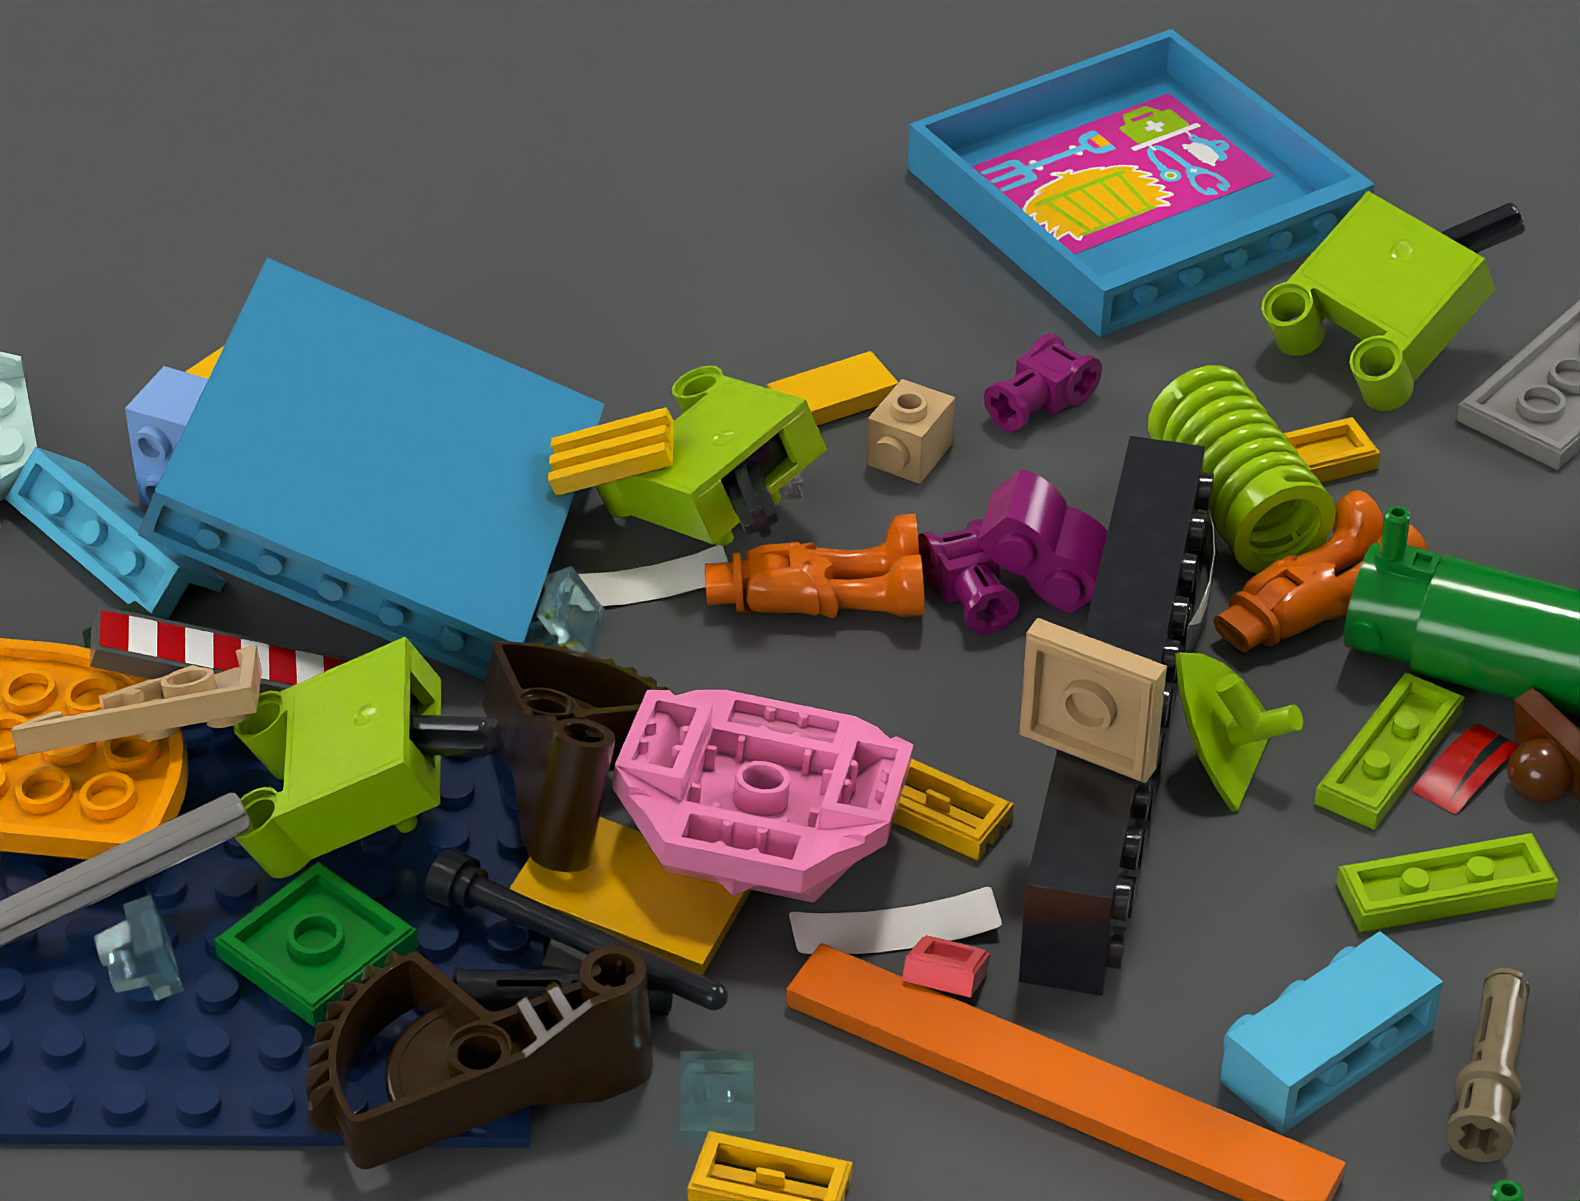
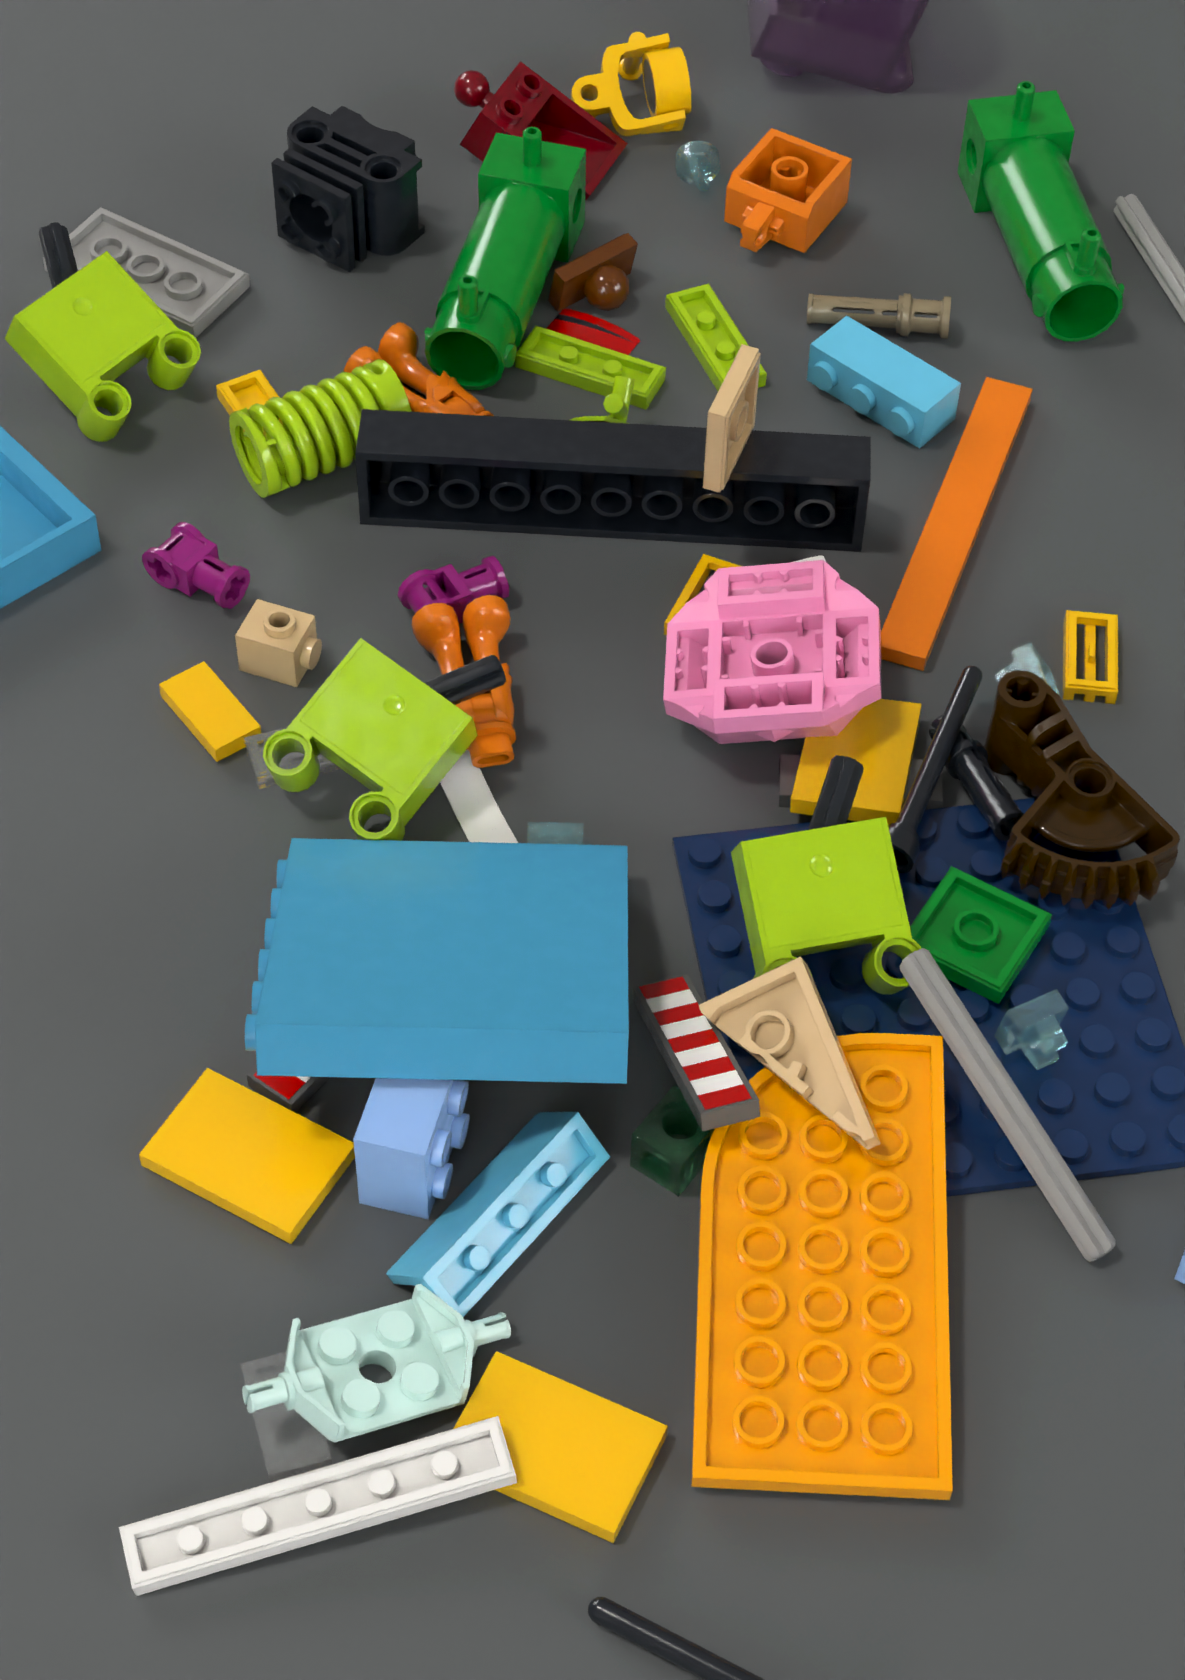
camera: 100 degrees left, 10 degrees up
(561, 738) = (737, 794): dark brown arm -> none
(611, 451) = (398, 749): yellow tile -> none
(946, 966) = (879, 573): coral tile -> none
(1044, 540) = (433, 534): magenta brick -> none

